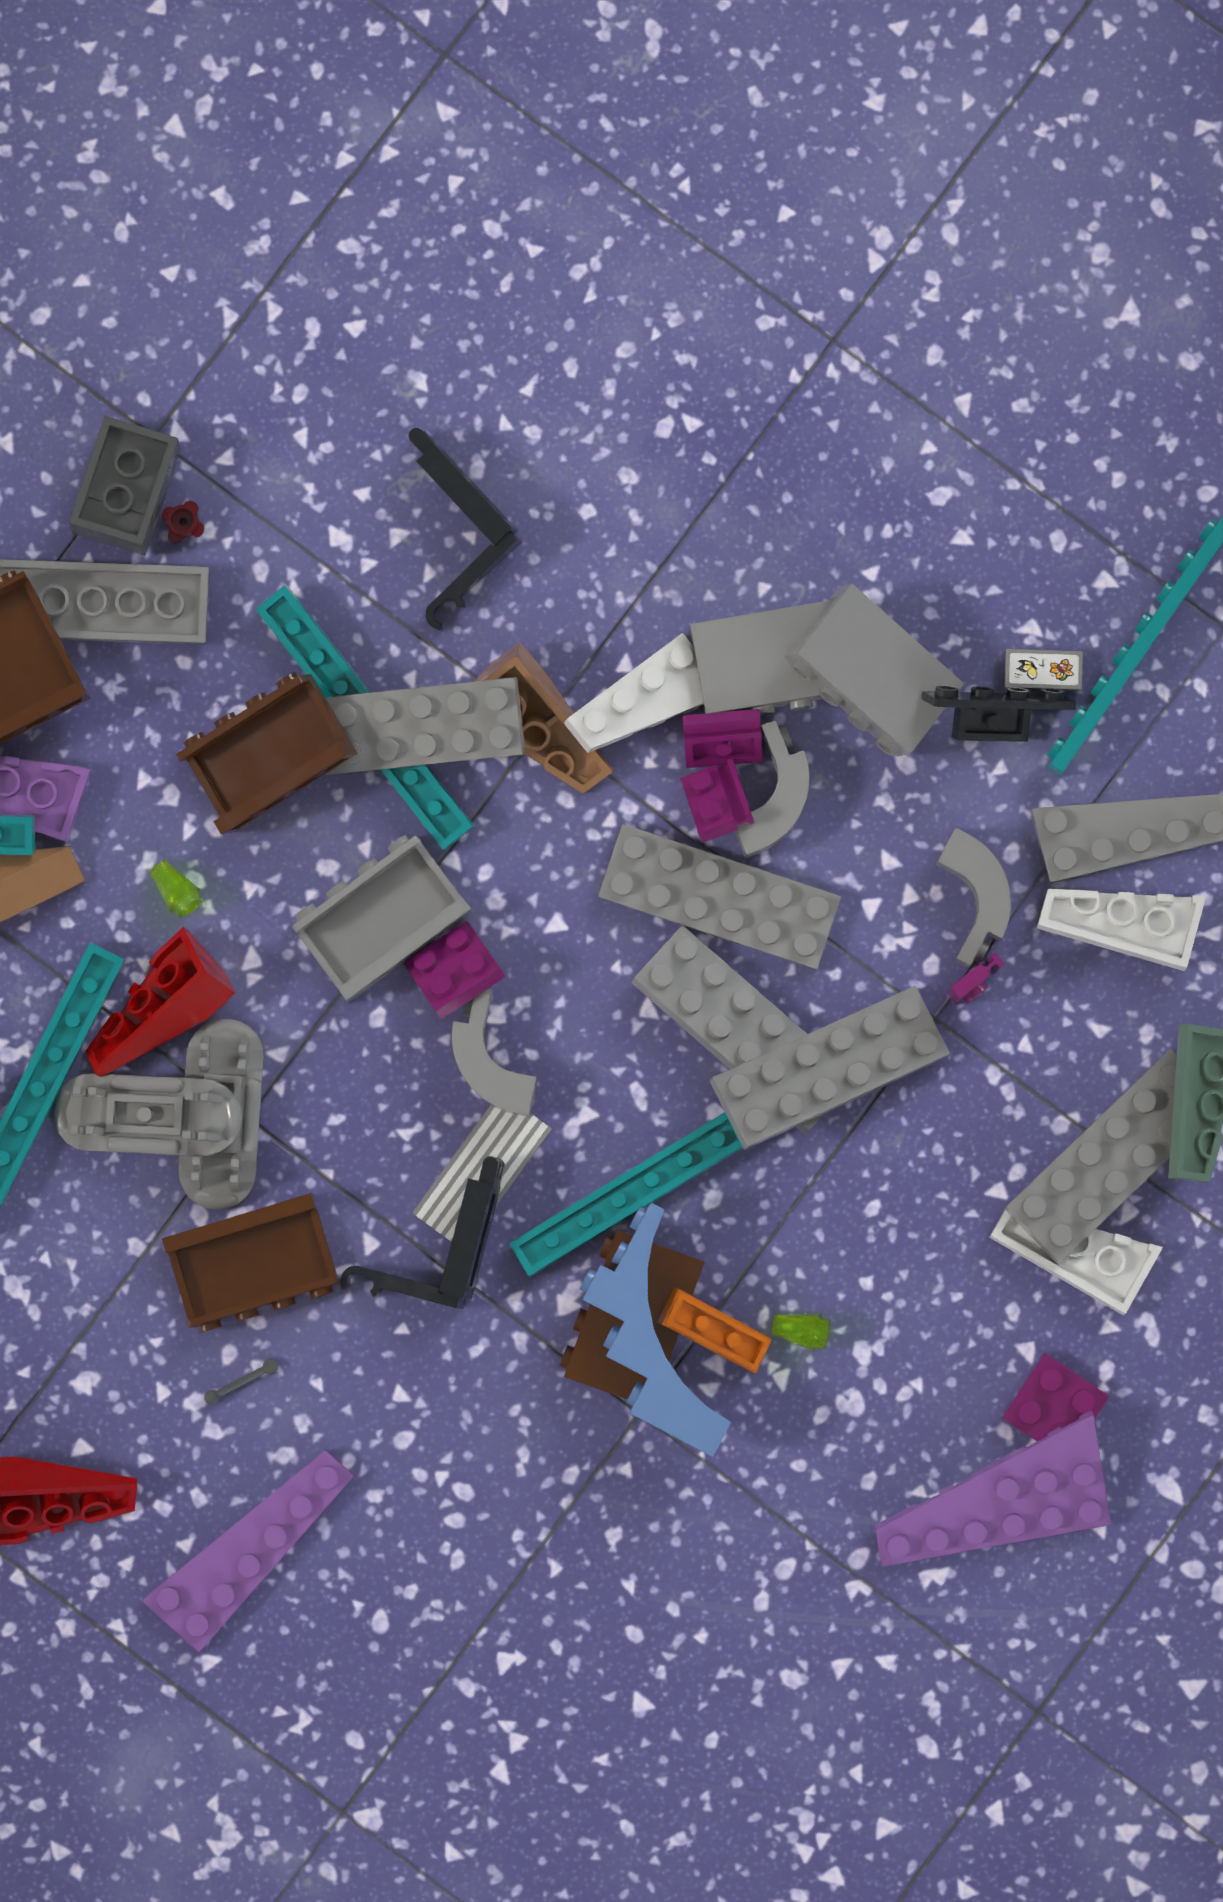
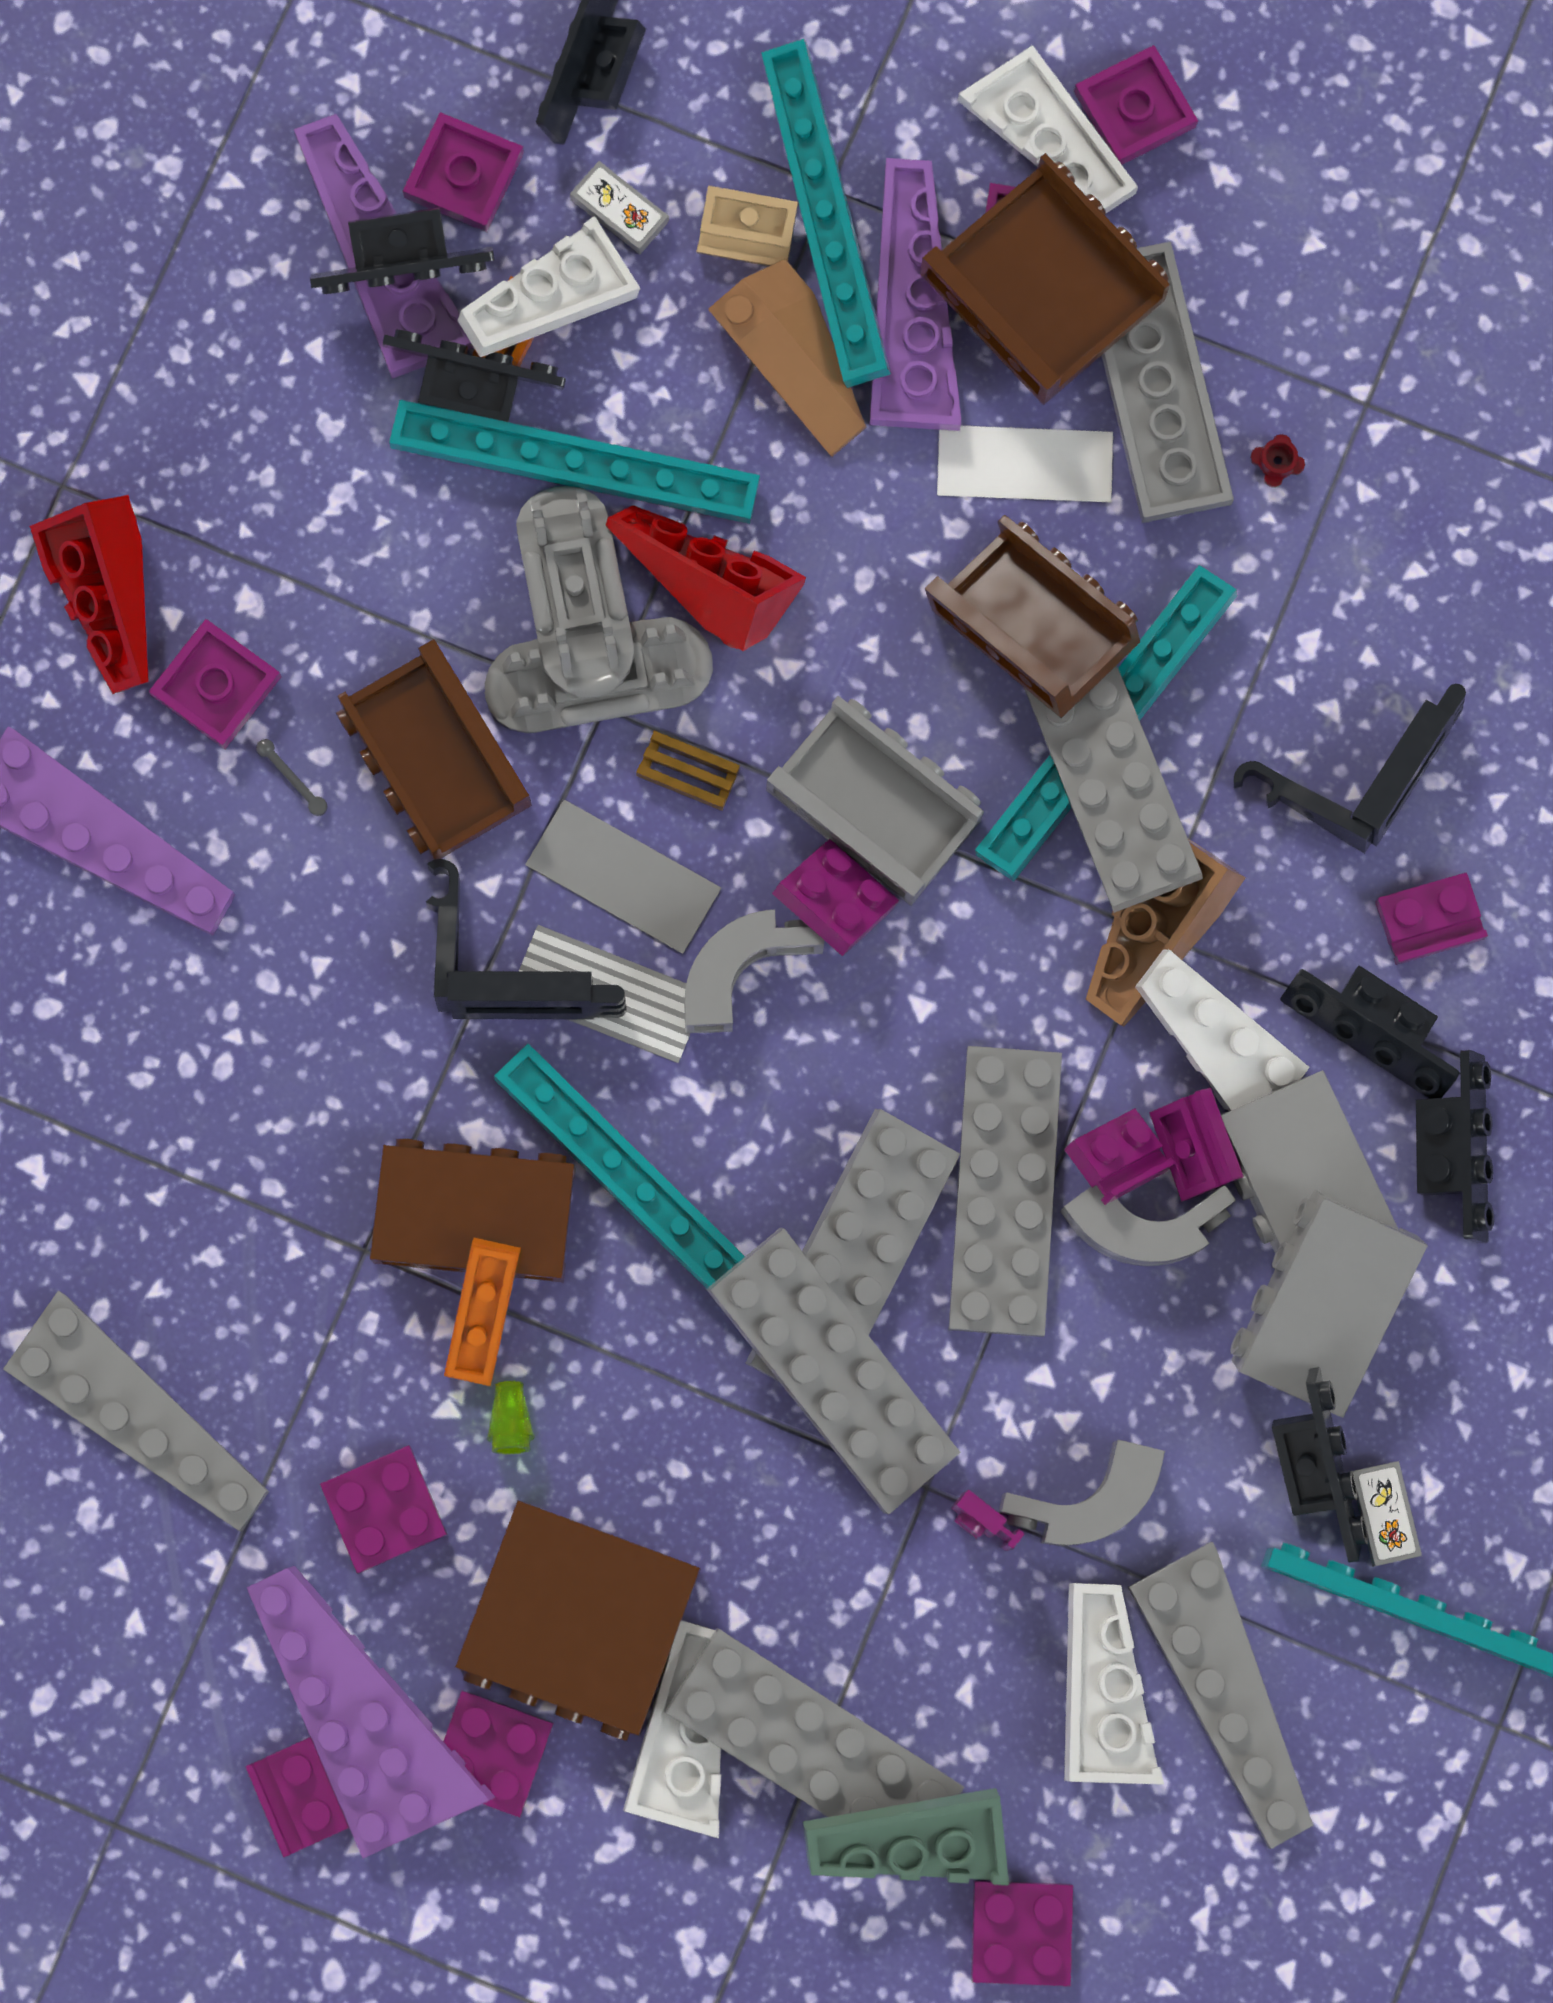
camera: 70 degrees right, 5 degrees down
(125, 485) = (1301, 381): dark grey piece -> none
(131, 724) = (1025, 463): none -> white sticker
(149, 1425) = (215, 684): none -> magenta plate
(176, 890) = (845, 560): clear neon green cone -> none
(305, 1052) = (652, 755): none -> pearl gold tile
(389, 1135) = (623, 876): none -> light grey sticker
(587, 504) = (1431, 918): none -> magenta plate
(624, 1294) = (496, 1189): medium blue arch -> none
(661, 570) = (1376, 1024): none -> black bracket
(698, 1643) = (107, 1391): none -> light grey wing
(772, 536) = (1454, 1146): none -> black bracket
(847, 1445) = (383, 1509): none -> magenta plate
(971, 1314) = (577, 1620): none -> reddish brown panel
(1051, 1564) = (297, 1797): none -> magenta plate

